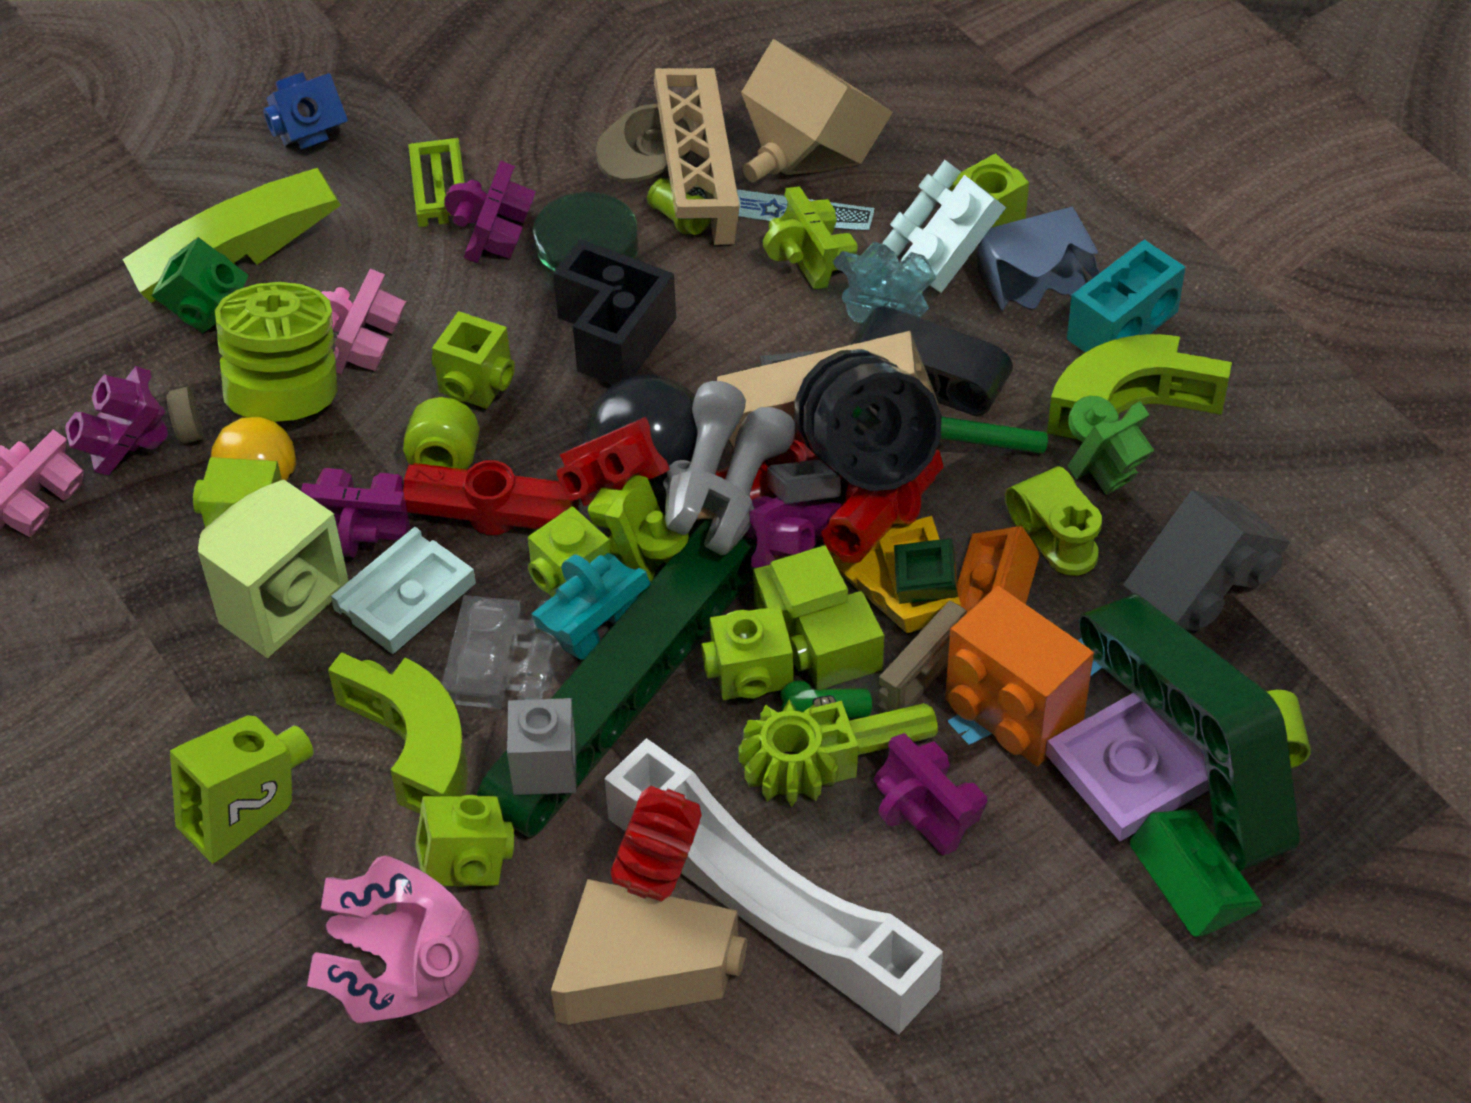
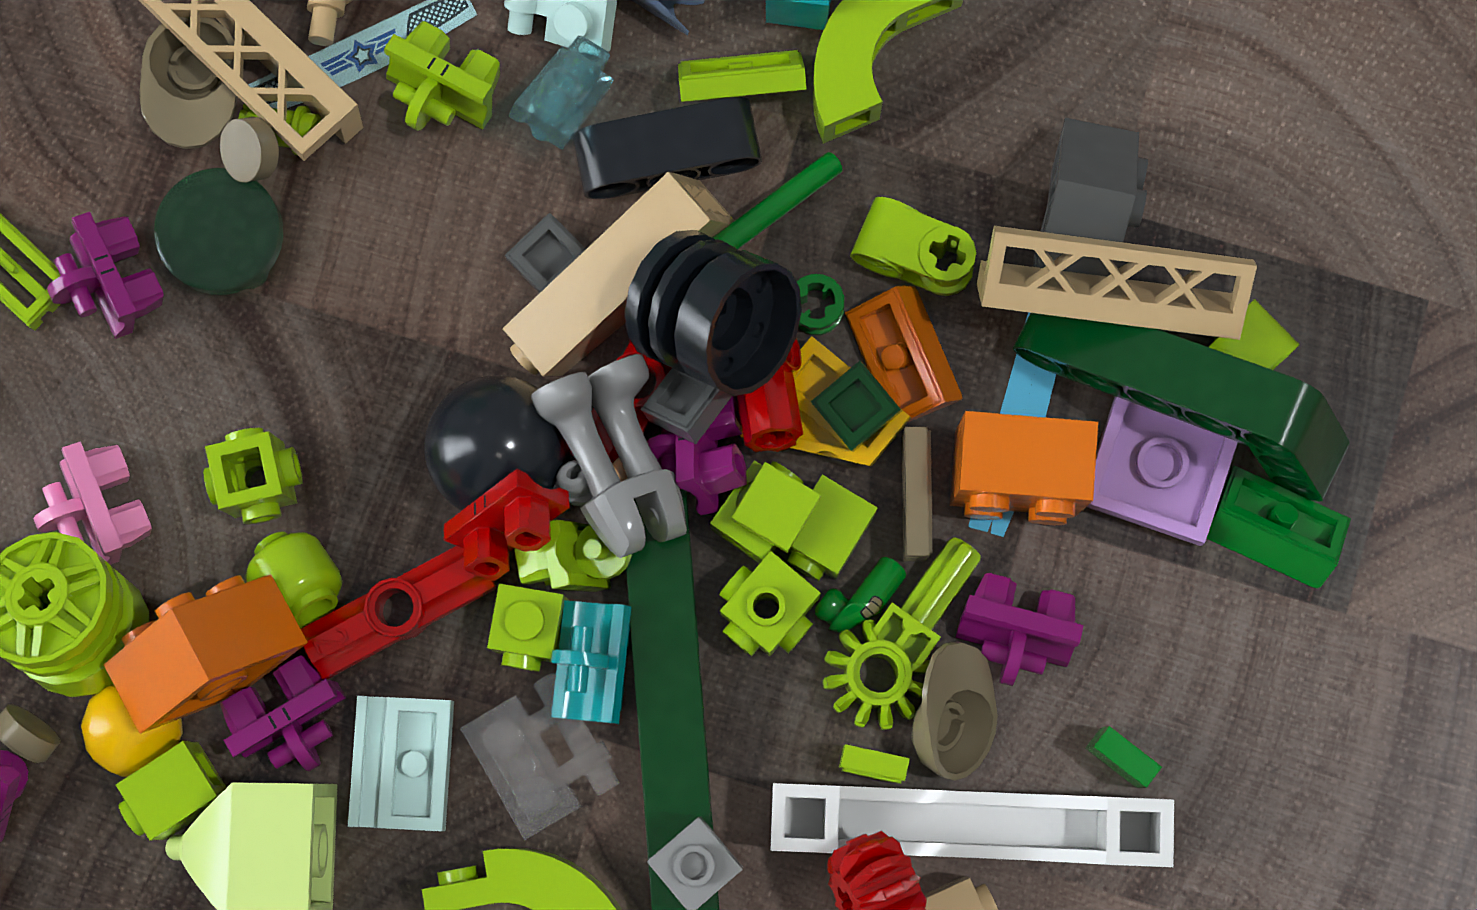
camera: 35 degrees left, 30 degrees up
(342, 415) = (203, 650): none -> orange brick
(615, 307) = (339, 300): black brick -> none
(647, 194) = (249, 149): none -> tile
(737, 800) = (873, 764): none -> lime tile
(827, 802) = (956, 712): none -> dark tan cap
(931, 921) = (1123, 757): none -> green tile
(964, 524) = (833, 312): none -> green bush
(1018, 346) = (741, 75): none -> lime tile
(1109, 446) = (910, 138): bright green hips -> none
(1174, 605) = (1116, 297): none -> tan fence

